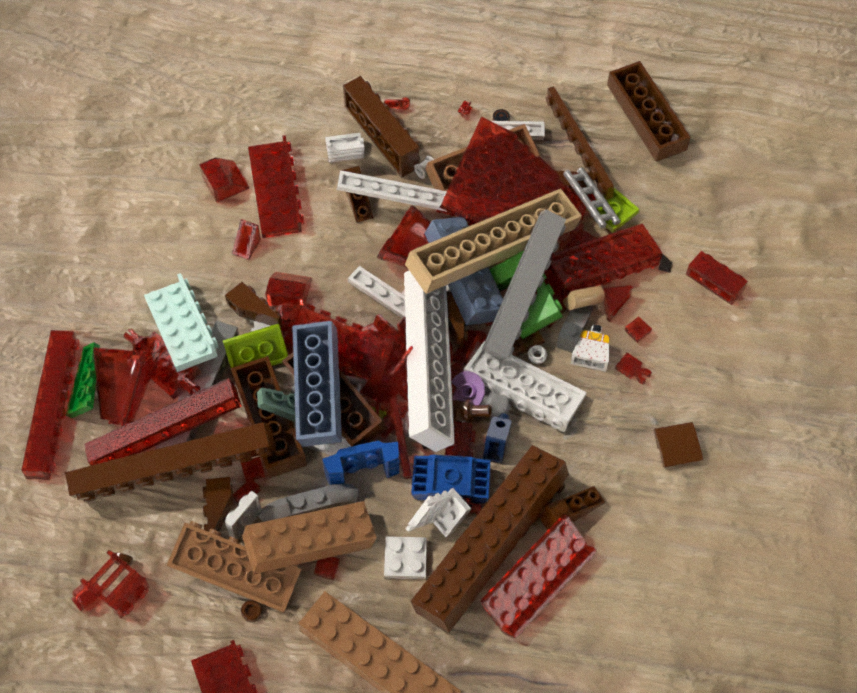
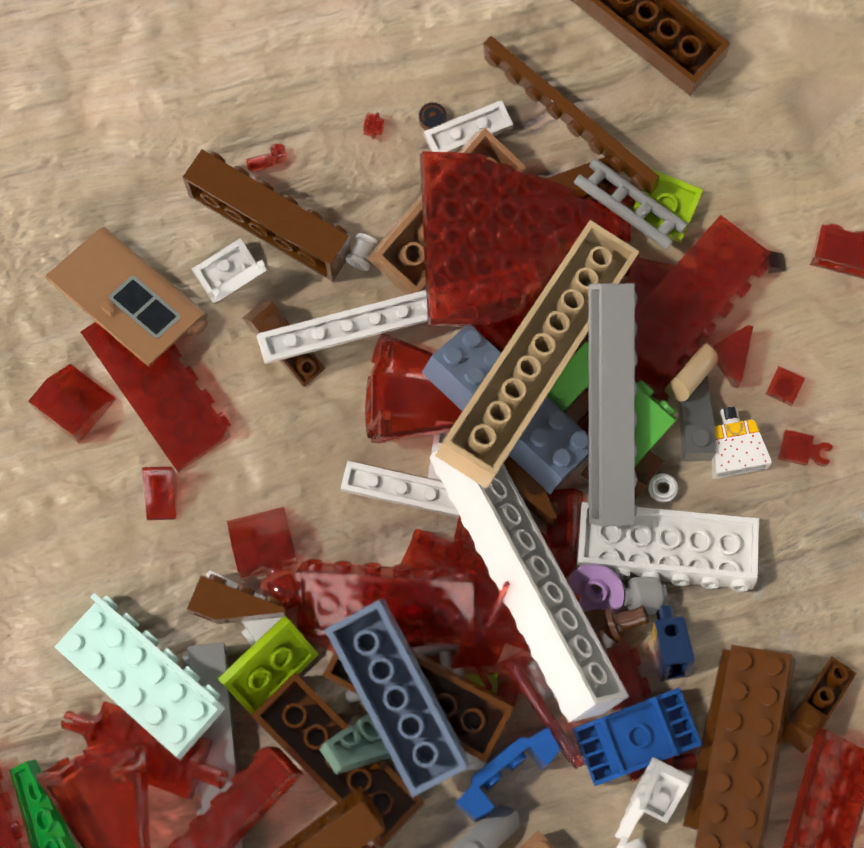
camera: 25 degrees left, 15 degrees up
(282, 136) = (127, 296): none -> medium nougat door

